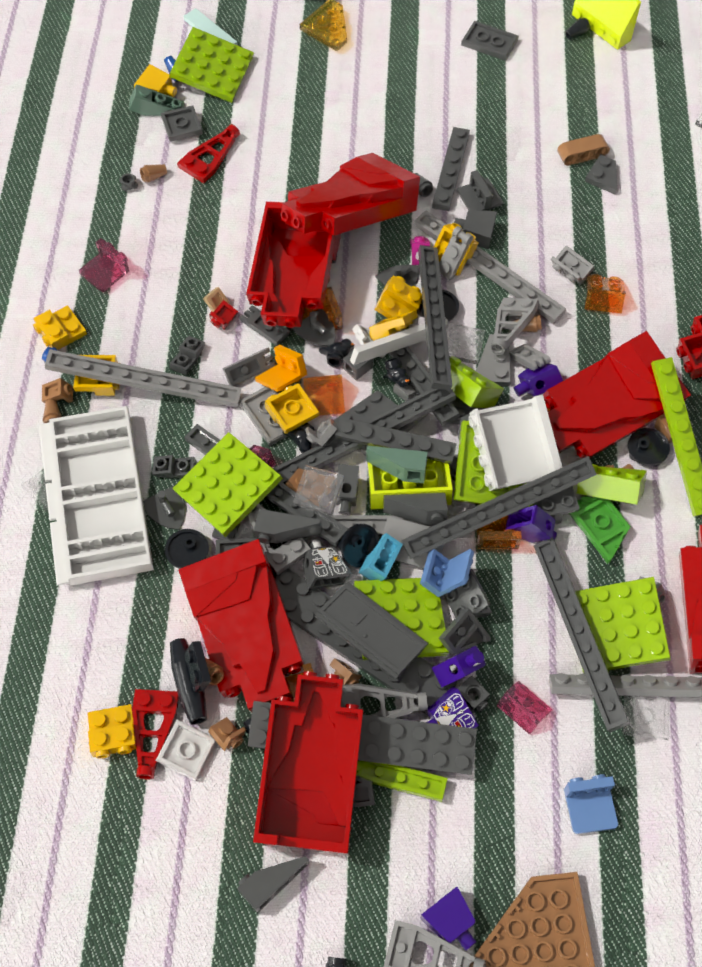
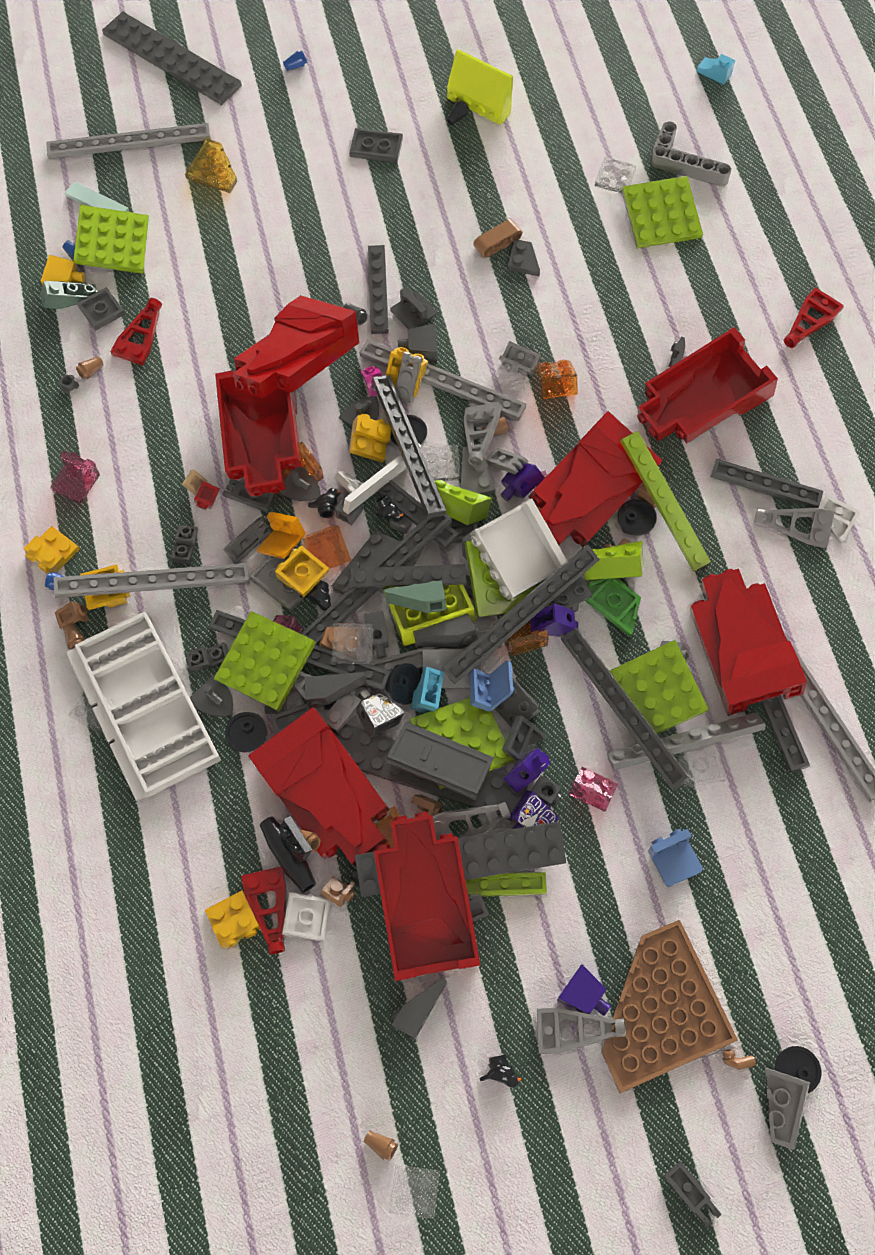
camera: 15 degrees left, 5 degrees up
(325, 431) = (340, 586): light grey bracket -> none
(392, 325) = (370, 464): yellow plate -> none

